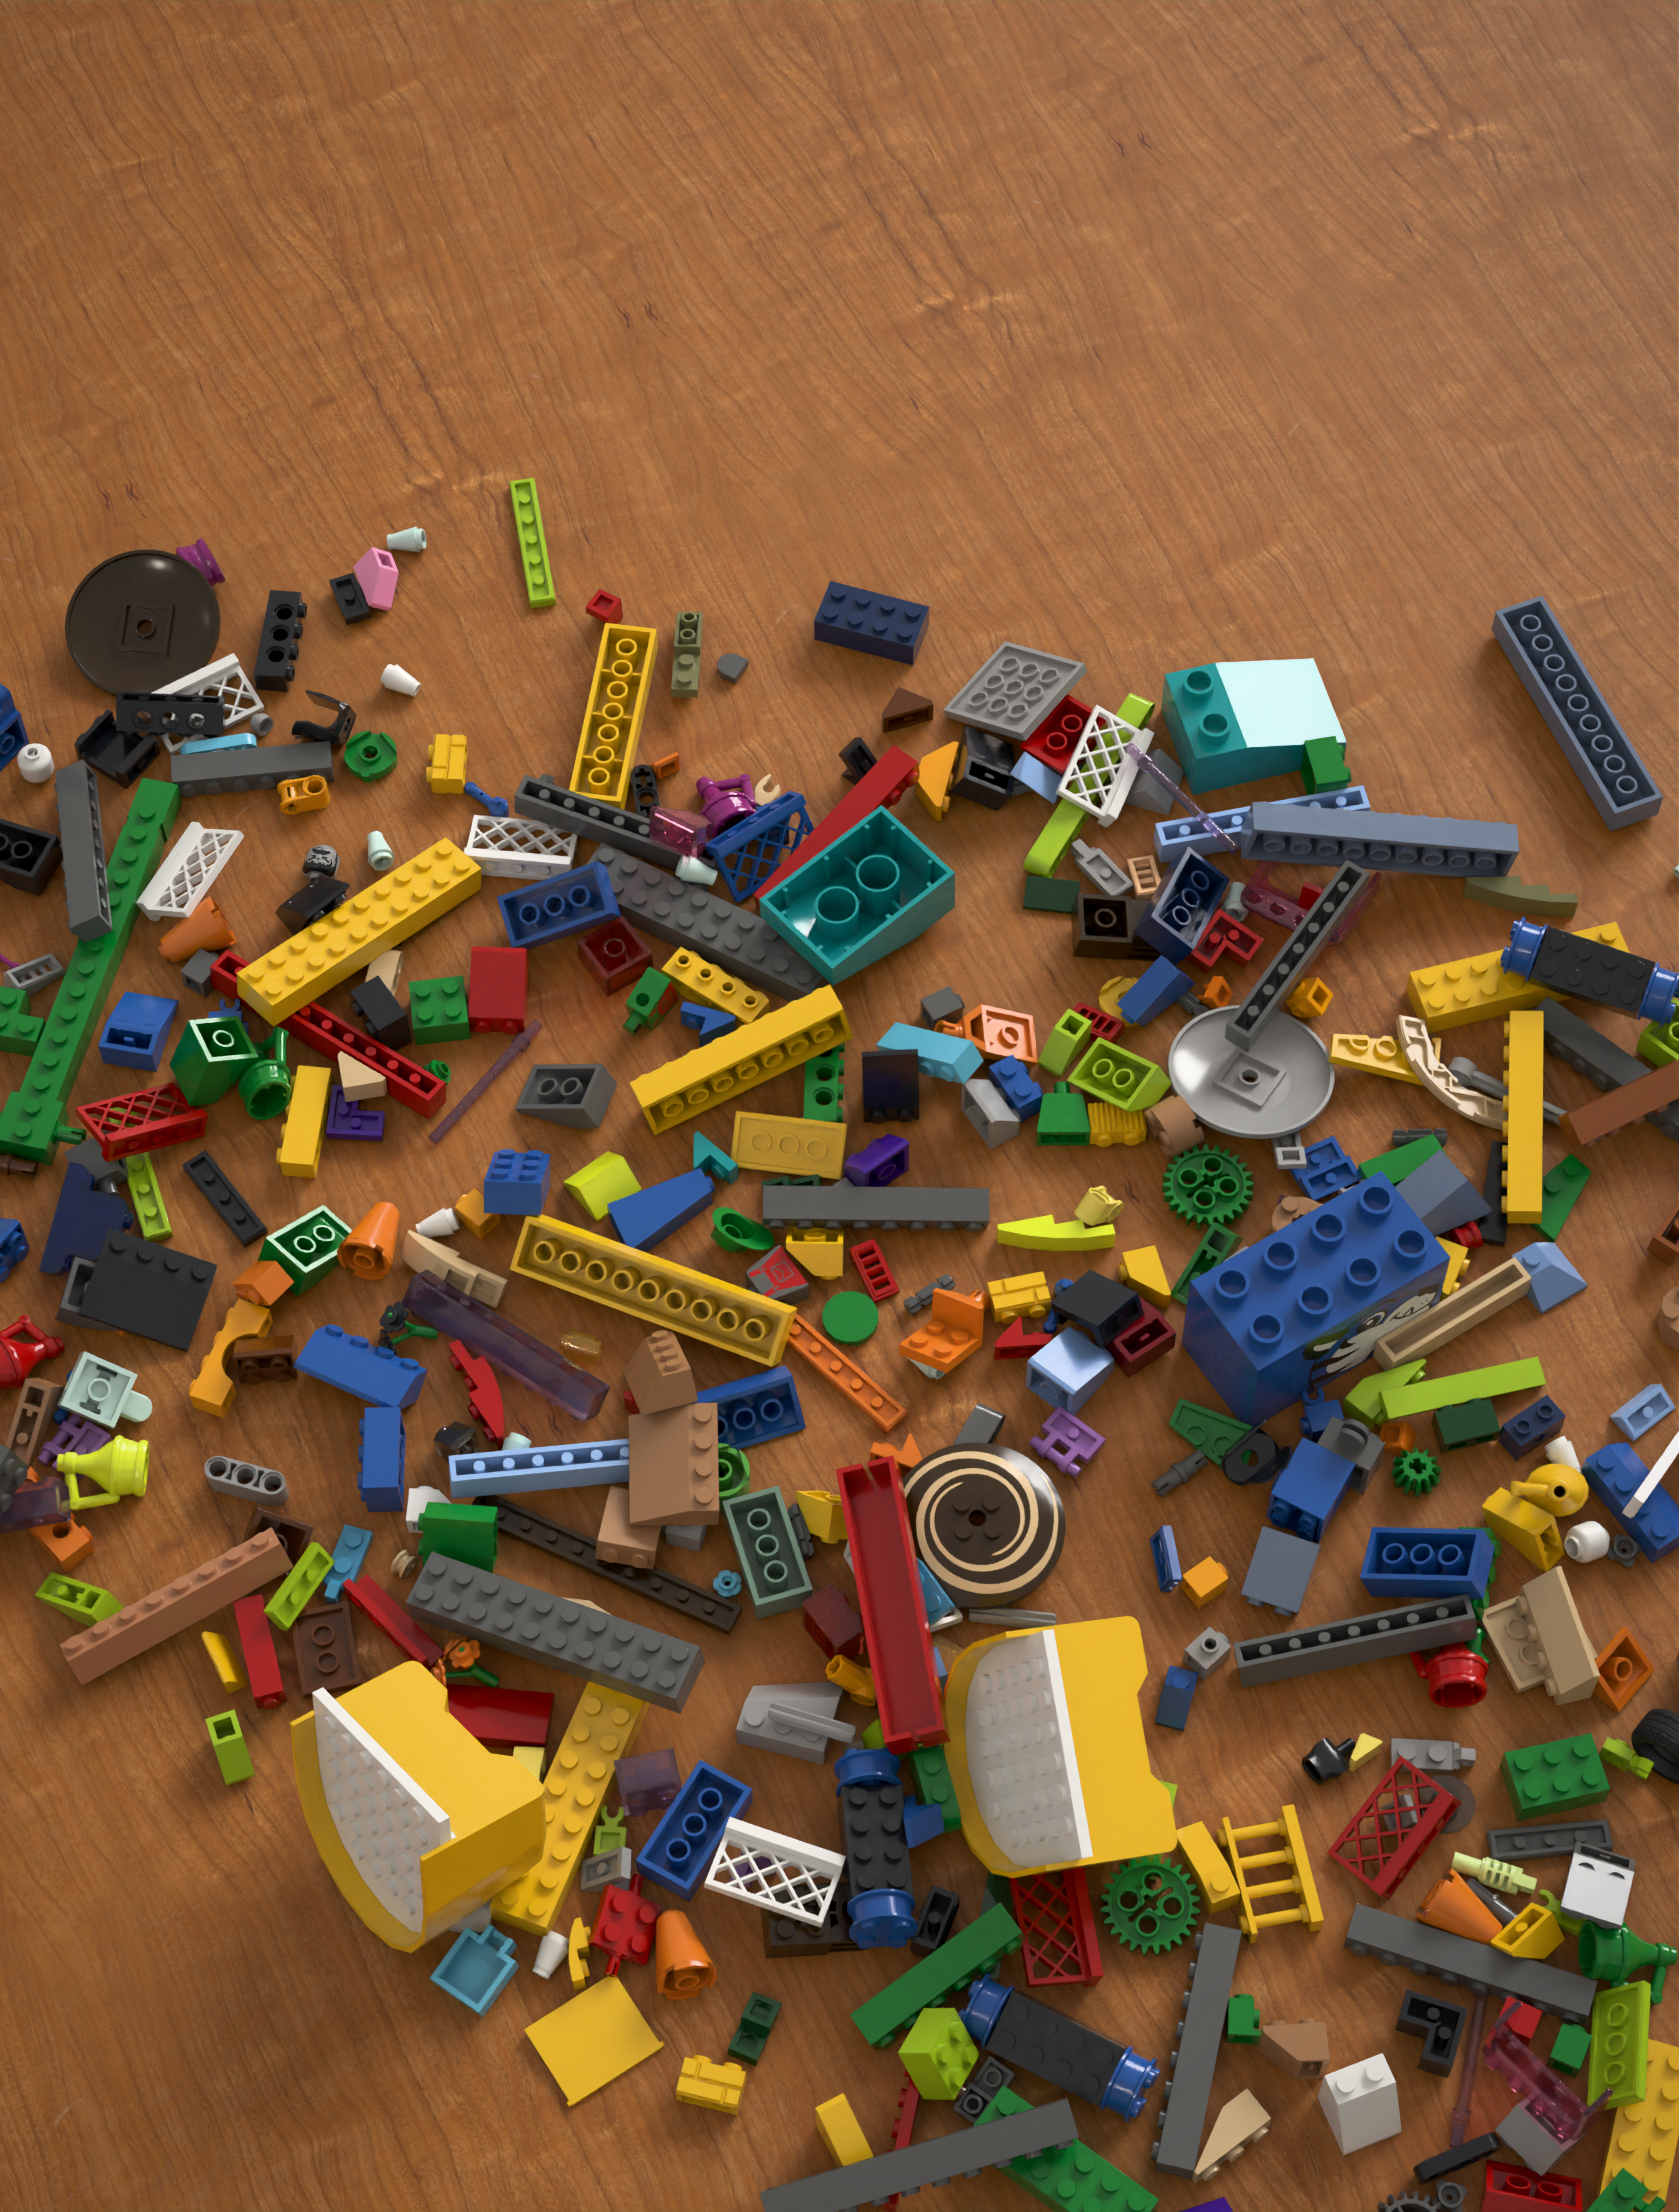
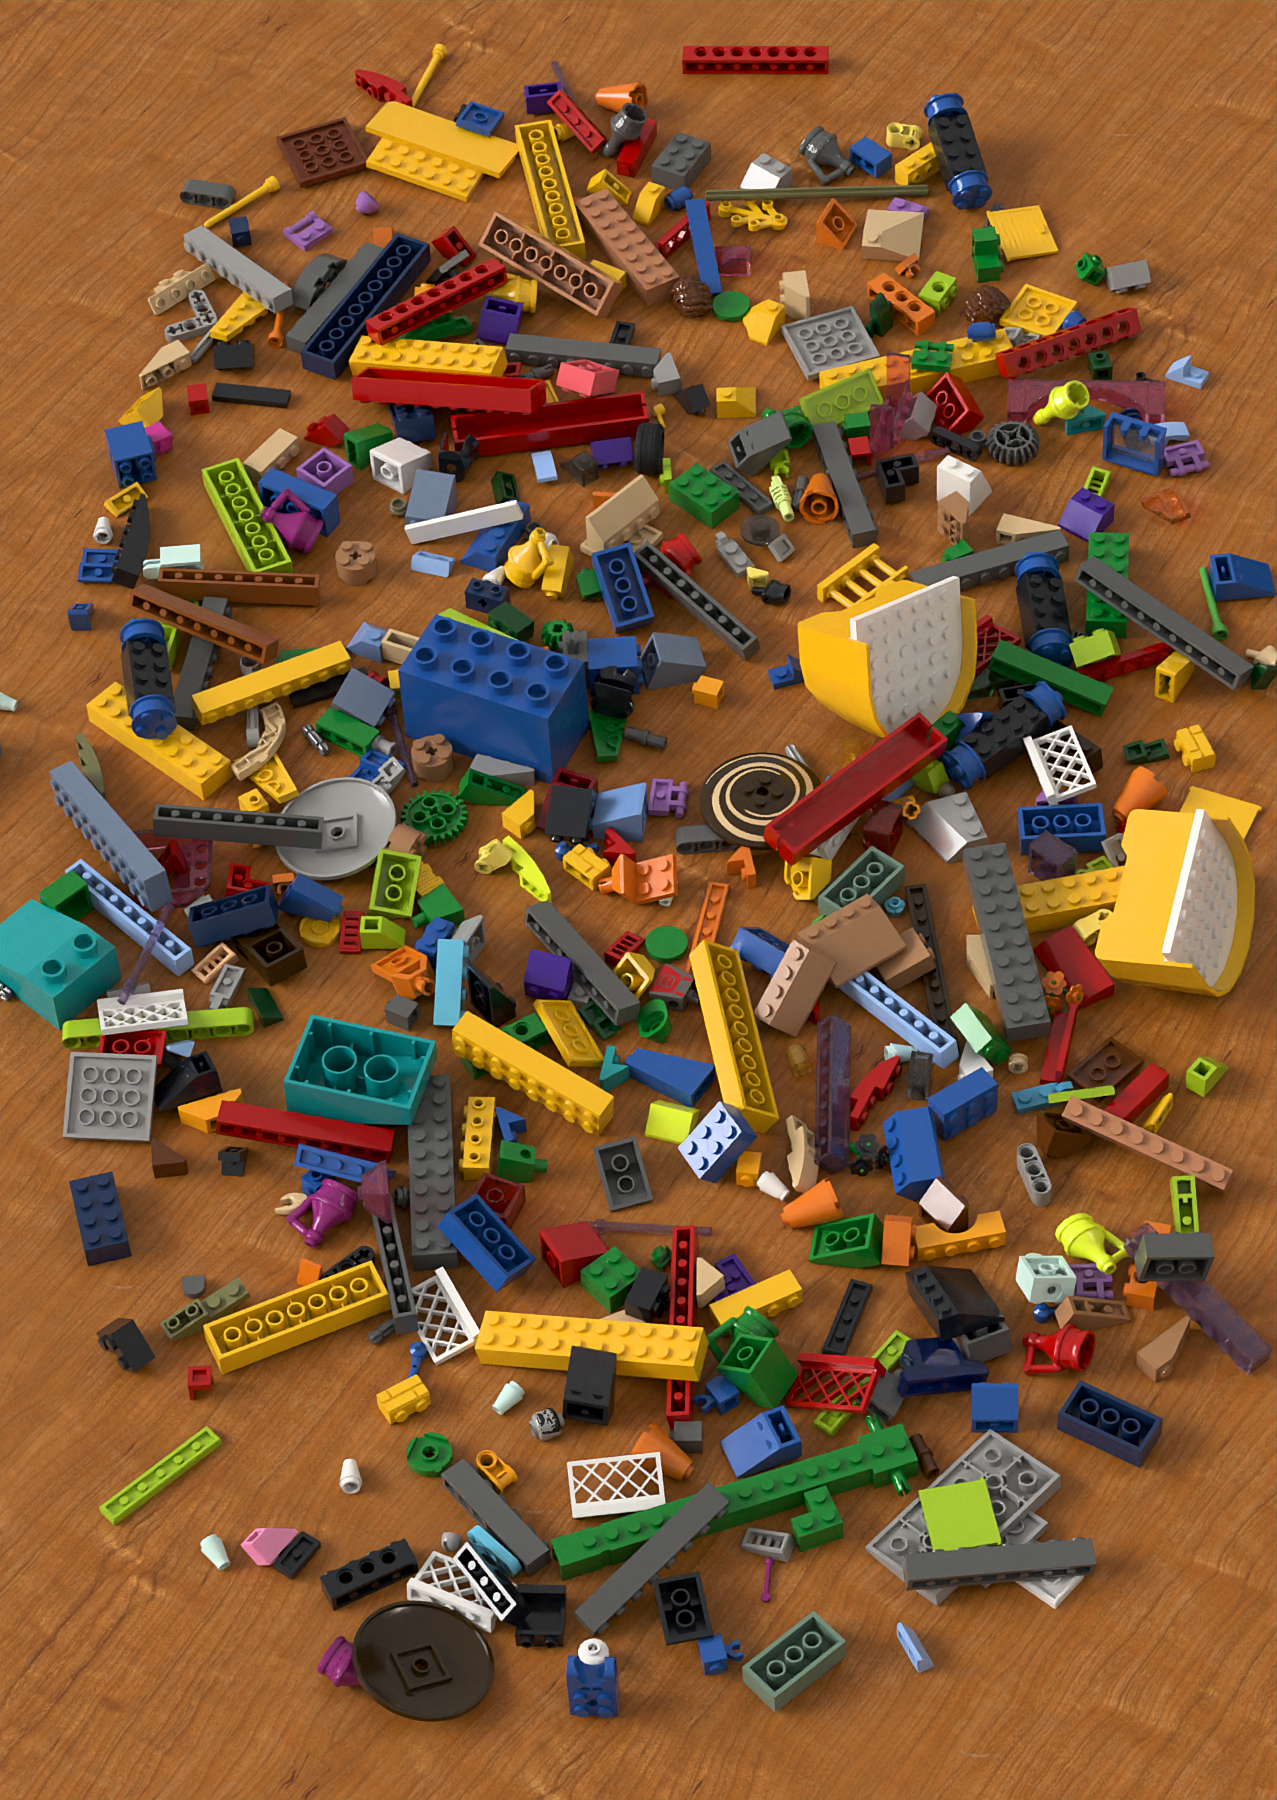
camera: 120 degrees left, 10 degrees down
(337, 732) = (431, 1481): black piece -> none
(693, 870) = (399, 1187): light aqua cone -> none
(694, 566) = (127, 1342): none -> black brick
(812, 1722) = (956, 798): light grey axle -> none
(925, 1295) = (618, 914): dark grey axle -> none
(1166, 1558) = (708, 711): blue tile -> none
(1207, 1653) = (752, 670): light grey brick -> none
(1349, 1018) = (253, 802): none -> yellow brick
(1412, 1846) = (798, 525): red fence -> none
(1530, 1934) = (809, 462): yellow slope -> none

